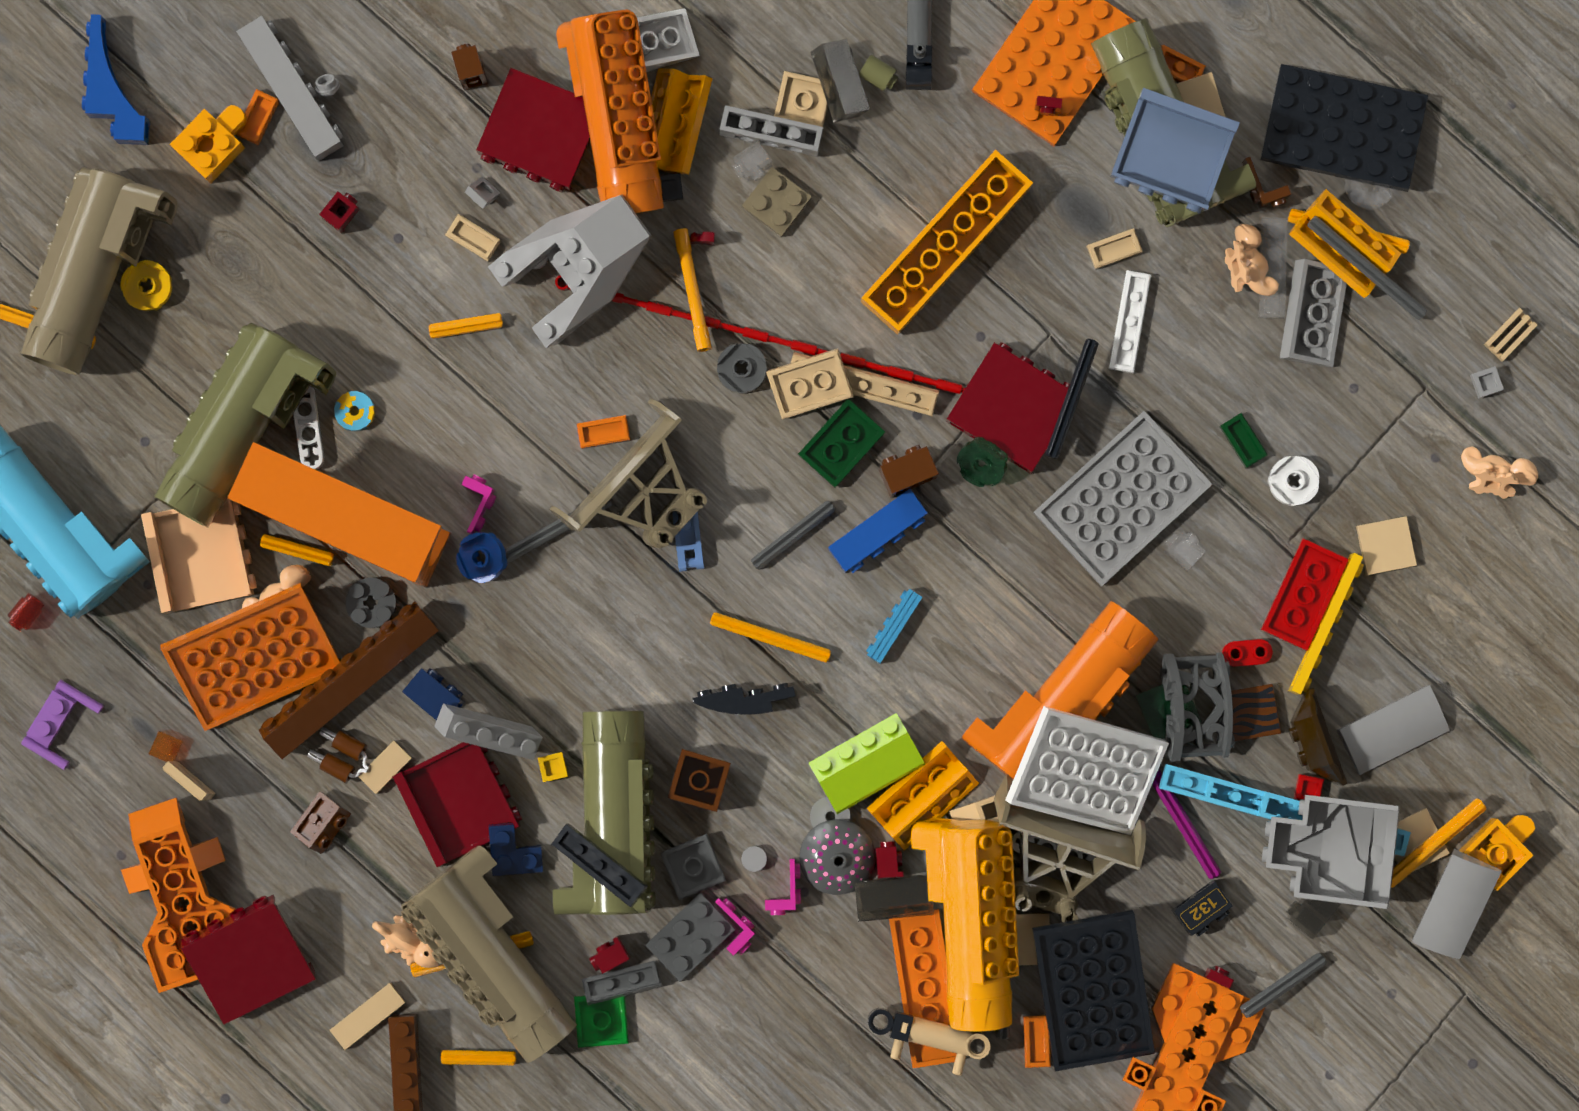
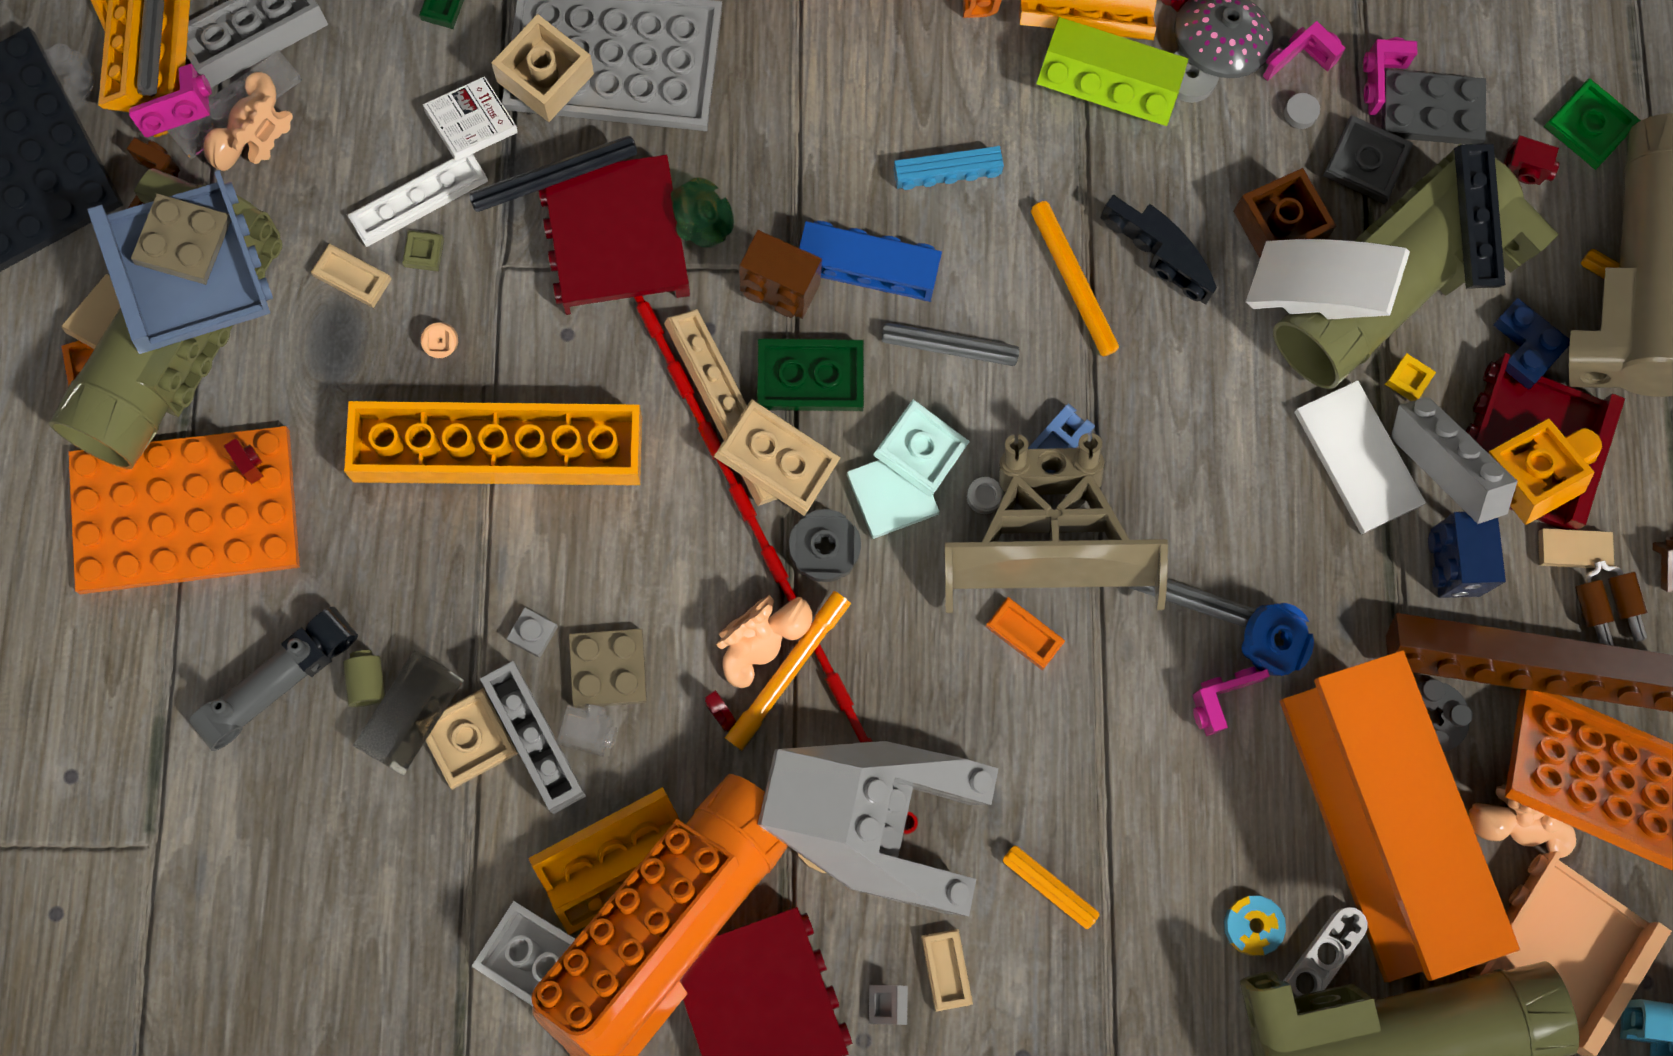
camera: 140 degrees left, 10 degrees down
(440, 778) = (1548, 456): none -> light orange brick
(536, 698) = (1359, 457): none -> white tile
(621, 982) = (1525, 119): dark grey tile -> none
(639, 747) = (1328, 277): none -> white slope
(671, 187) = (691, 794): black plate -> none
(694, 477) = (984, 495): none -> white tile
(722, 288) = (758, 638): none -> light nougat animal
(738, 430) = (888, 499): none -> light aqua tile
(748, 465) = (921, 448): none -> light aqua tile
(829, 179) = (532, 632): none -> light grey plate
(1034, 264) = (439, 340): none -> light nougat tile
(1095, 298) = (423, 251): none -> olive tile
(1139, 444) = (543, 68): none -> tan brick
(1151, 387) = (470, 118): none -> white tile
(1186, 160) = (181, 239): none -> dark tan plate
(1284, 235) = (177, 107): none -> dark pink bracket

